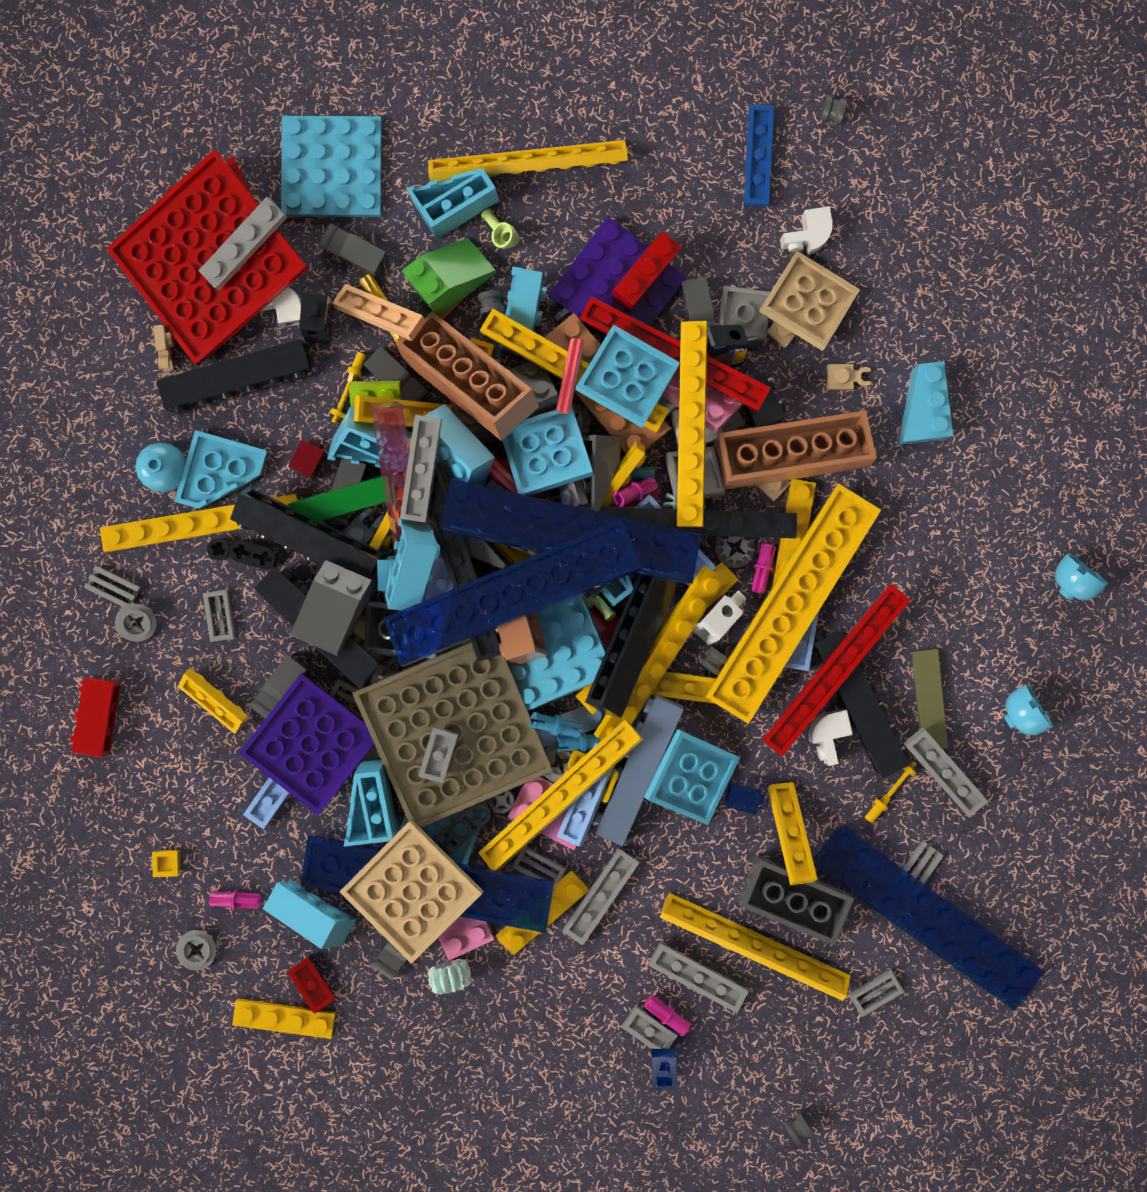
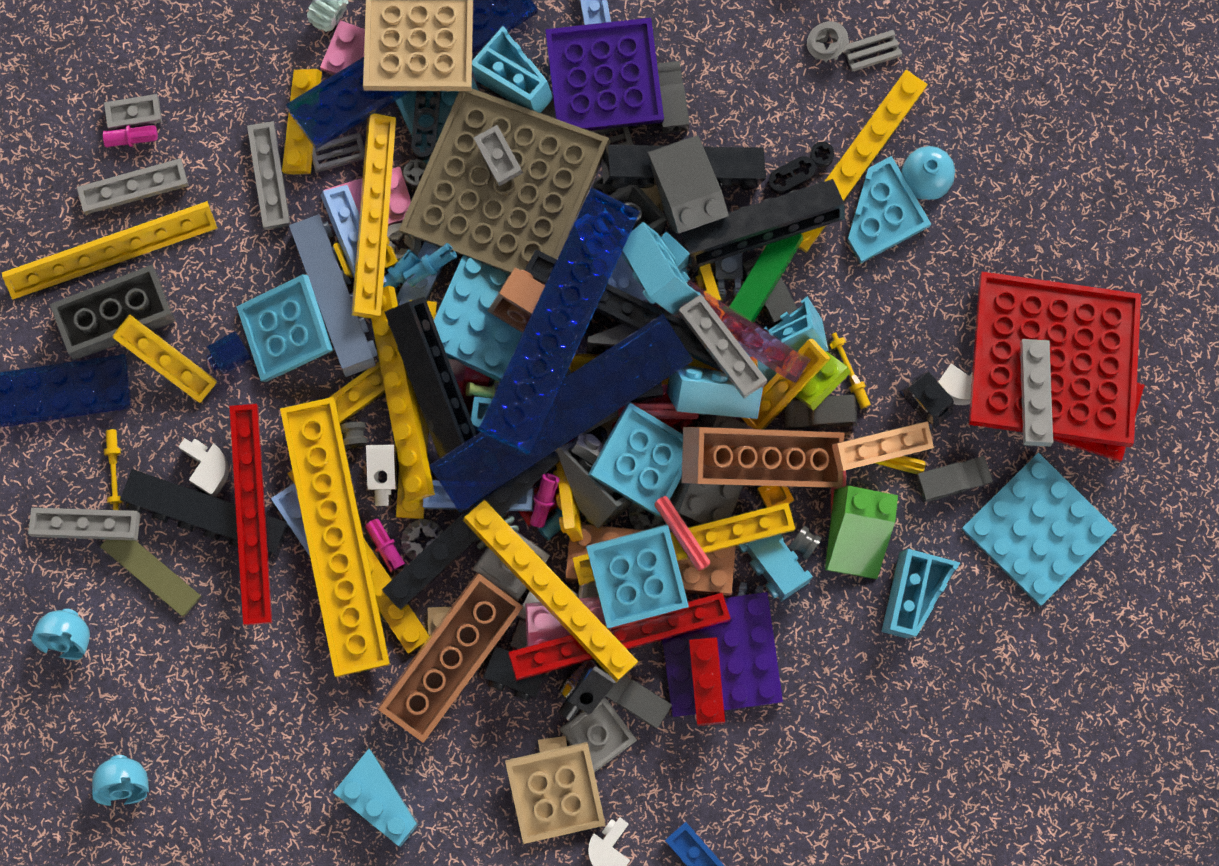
camera: 140 degrees right, 10 degrees down
(164, 342) = (1019, 262): tan plate -> none
(212, 700) = (711, 39): yellow plate -> none
(229, 615) = (766, 115): light grey tile -> none
(235, 376) = (943, 293): black brick -> none
(308, 458) = (823, 285): dark red brick -> none
(501, 231) = (849, 605): yellowish green bar -> none
(528, 160) = (890, 685): yellow plate -> none
(664, 1068) = (94, 93): clear blue plate -> none
(843, 377) = (468, 761): tan plate -> none
(938, 856) = (36, 445): light grey tile -> none

